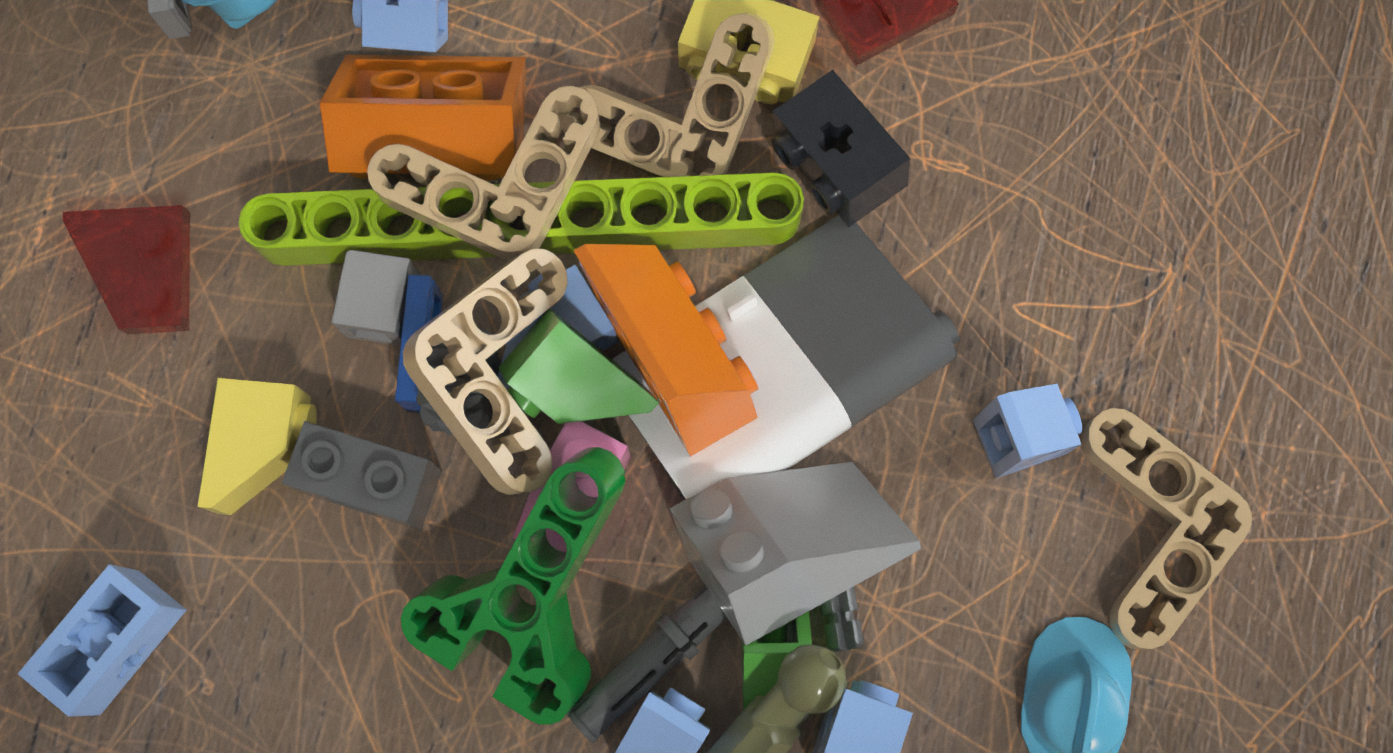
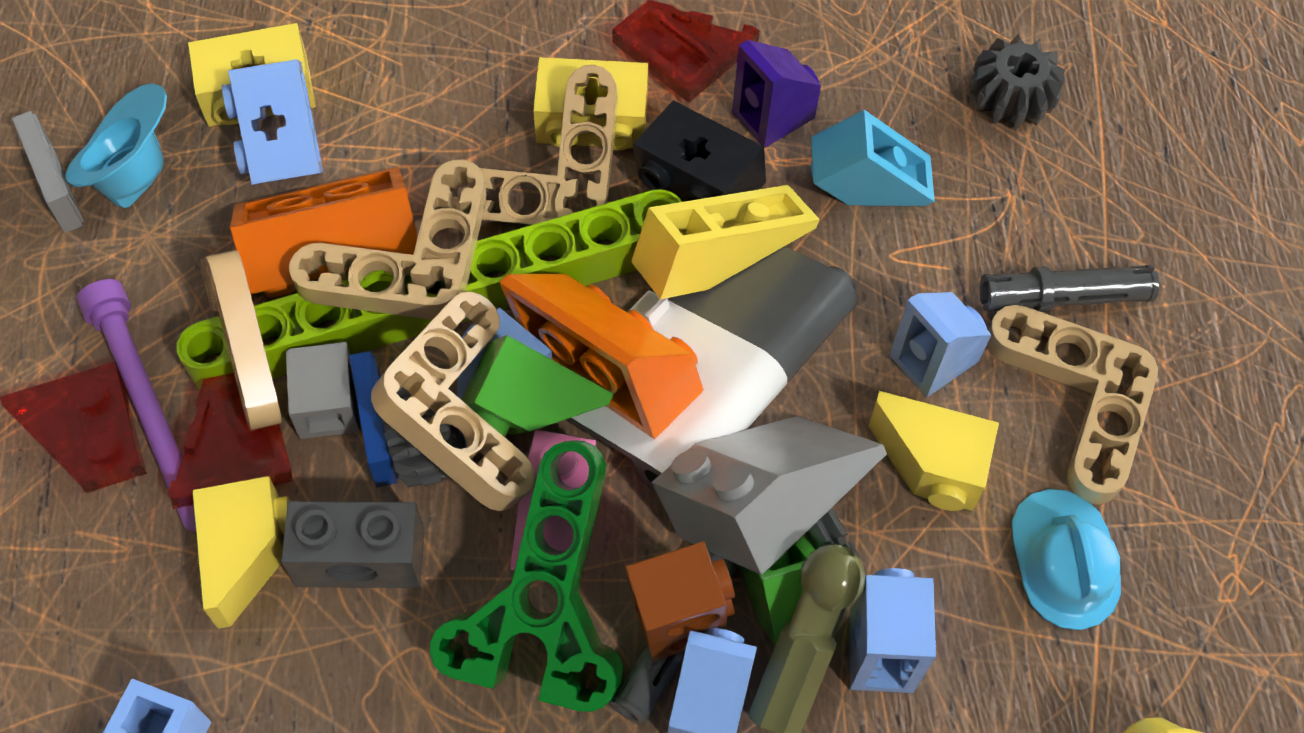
camera: 20 degrees left, 15 degrees down
(188, 142) = (107, 308): none -> medium lavender piece
(275, 326) = (223, 448): none -> clear red wing
(299, 178) = (231, 297): none -> tan beam
(649, 656) = (679, 595): none -> dark orange brick
(829, 247) = (710, 239): none -> light yellow slope
(949, 84) = (773, 91): none -> dark purple slope
(981, 549) = (935, 449): none -> light yellow slope
(1026, 201) = (870, 164): none -> medium azure slope
(1205, 407) = (1048, 289): none -> dark grey pin
(1237, 123) = (1017, 81): none -> dark grey gear

